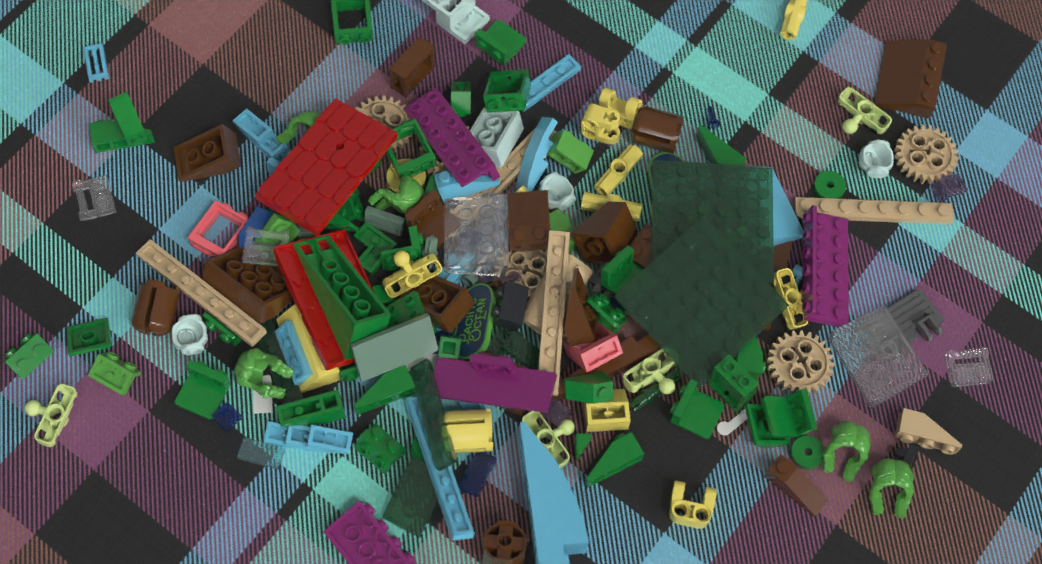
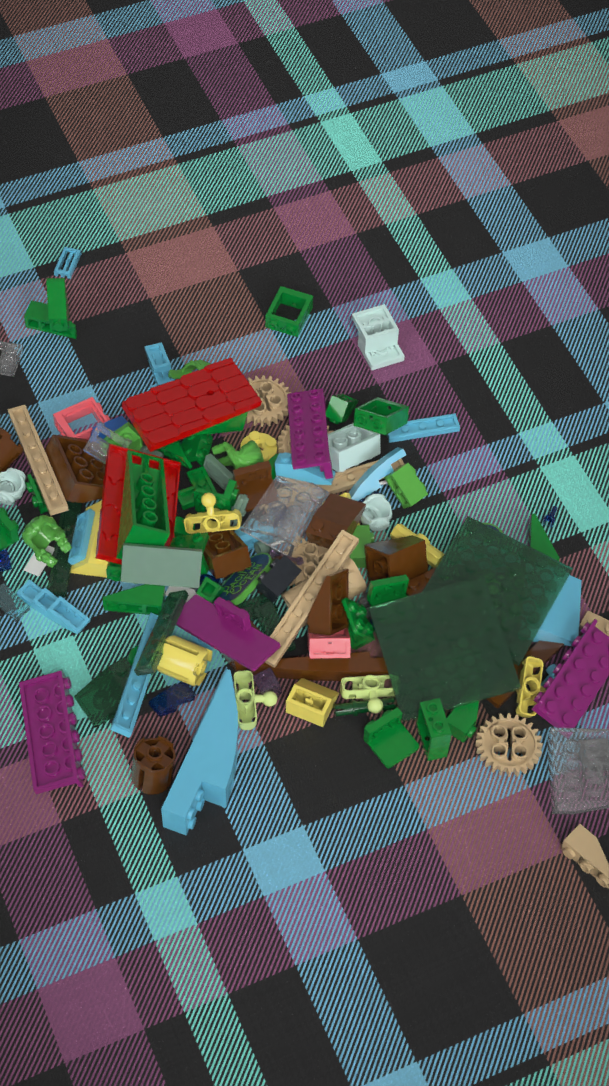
camera: 30 degrees right, 10 degrees down
(207, 154) = (110, 363): reddish brown slope -> none
(312, 410) = (70, 586): green slope -> none
(379, 448) = (105, 642): green bracket -> none
(412, 67) = (307, 358): reddish brown window -> none
(419, 164) = (270, 440): green window -> none
(499, 42) = (401, 380): green bracket -> none
(581, 444) = (274, 718): green slope -> none
(589, 388) = (304, 673): green slope -> none
(595, 124) = (443, 476): light yellow piece -> none
(619, 456) = (297, 743): green slope -> none
(624, 162) = (449, 516): light yellow piece -> none
(626, 109) = (469, 474): light yellow piece -> none
(656, 129) = (493, 501): reddish brown cylinder -> none
(691, 508) = (337, 815): light yellow piece -> none
(726, 428) = (410, 767): white sticker -> none
(759, 428) = (446, 781): green slope -> none
(789, 415) = (469, 781): green bracket -> none
(795, 485) = (442, 841): reddish brown slope -> none
(803, 461) = (467, 830): green piece -> none
(849, 435) = (519, 825): bright green hair -> none
(889, 473) = (541, 876): bright green hair -> none
(908, 456) = (560, 869): black tile -> none

